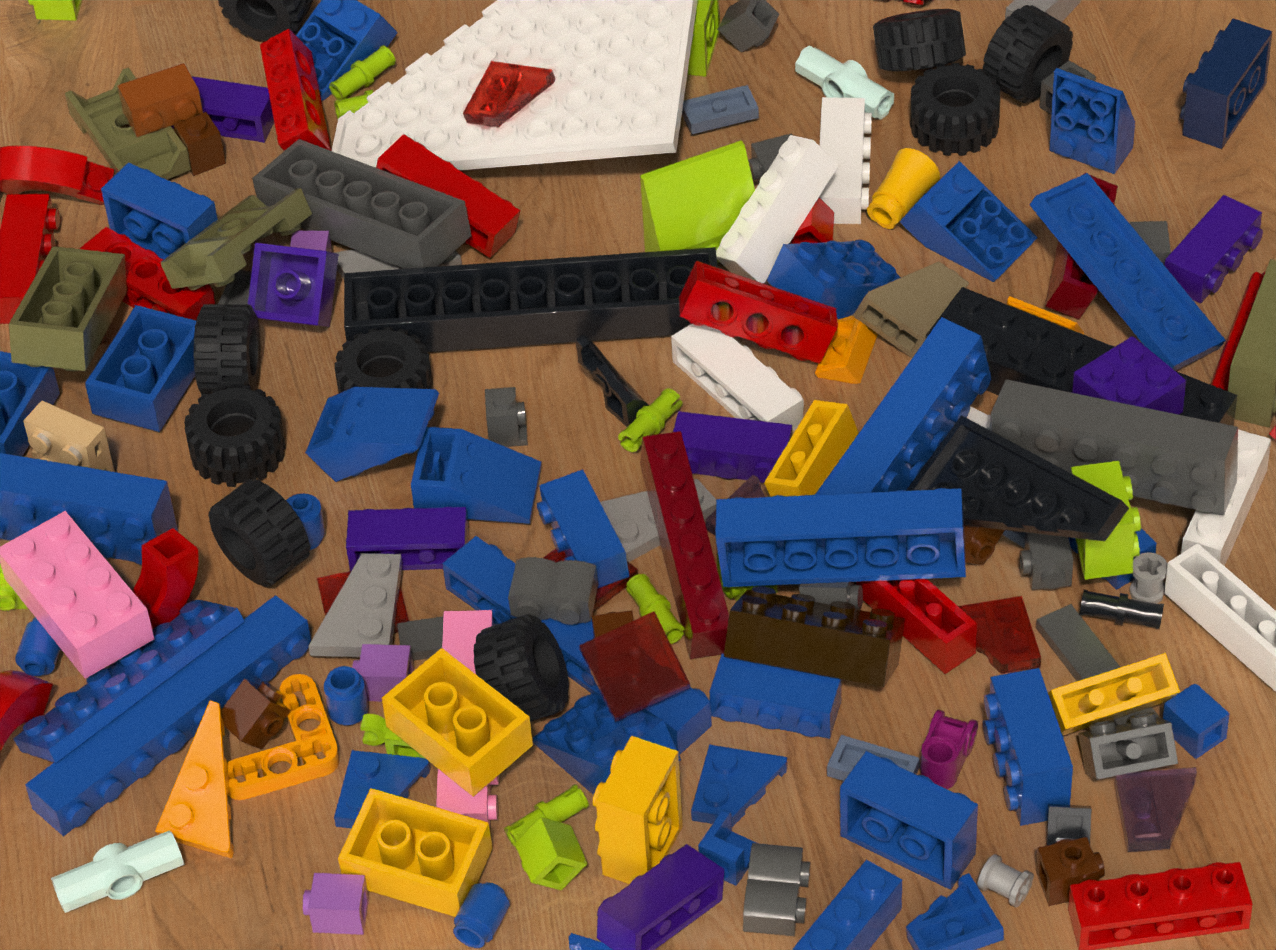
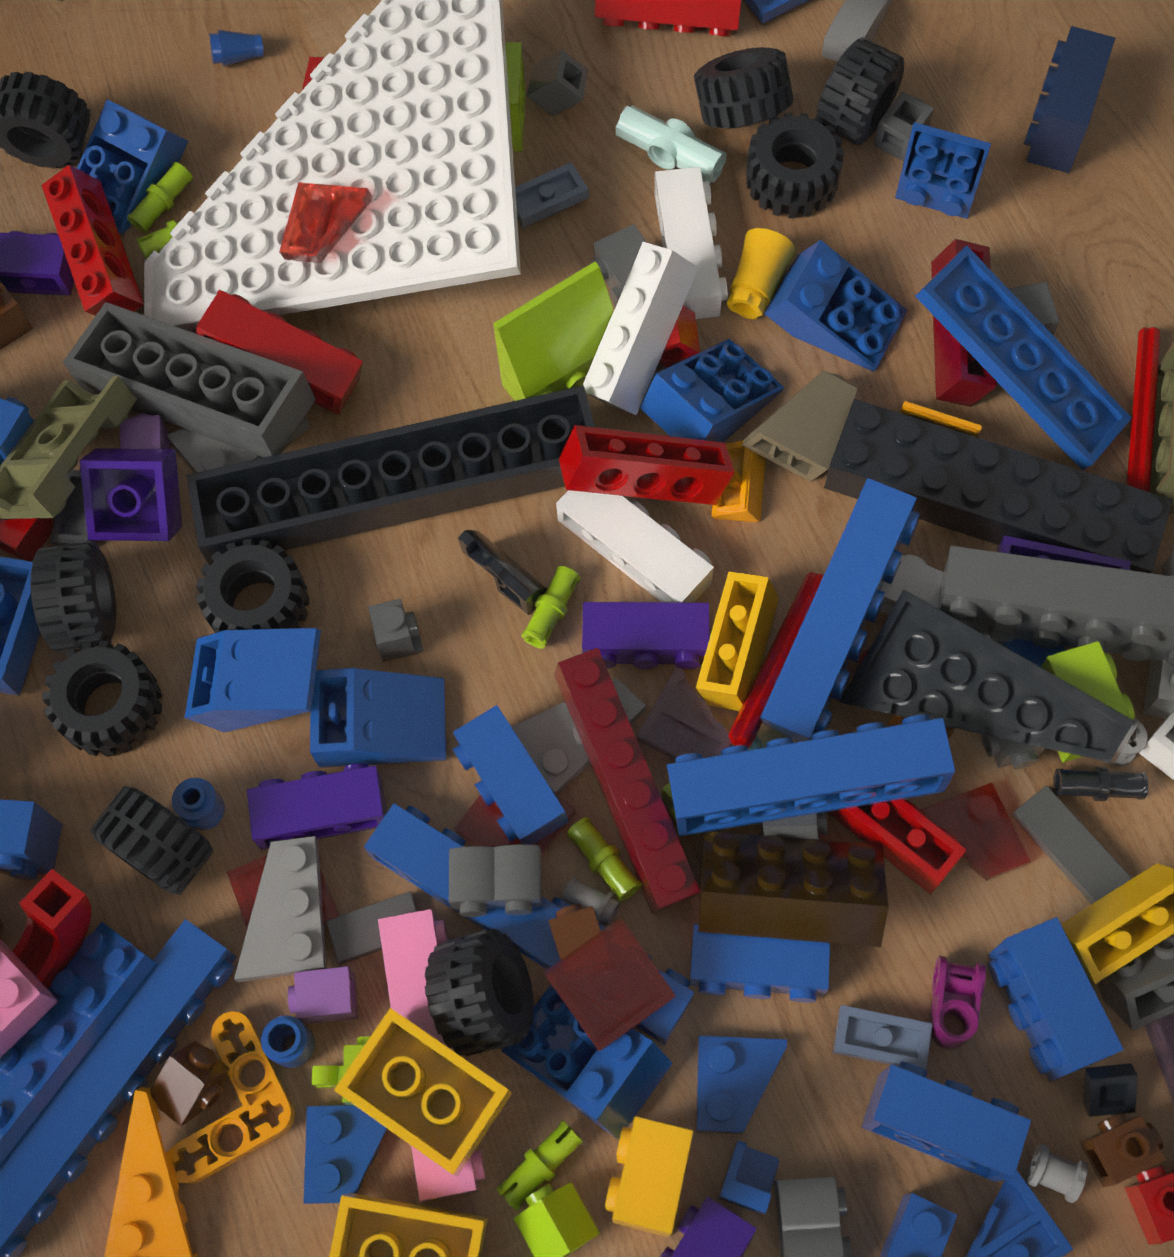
camera: 10 degrees left, 20 degrees up
(1132, 377) = (1071, 520): dark purple brick -> none
(1215, 247) = (1098, 303): dark purple brick -> none

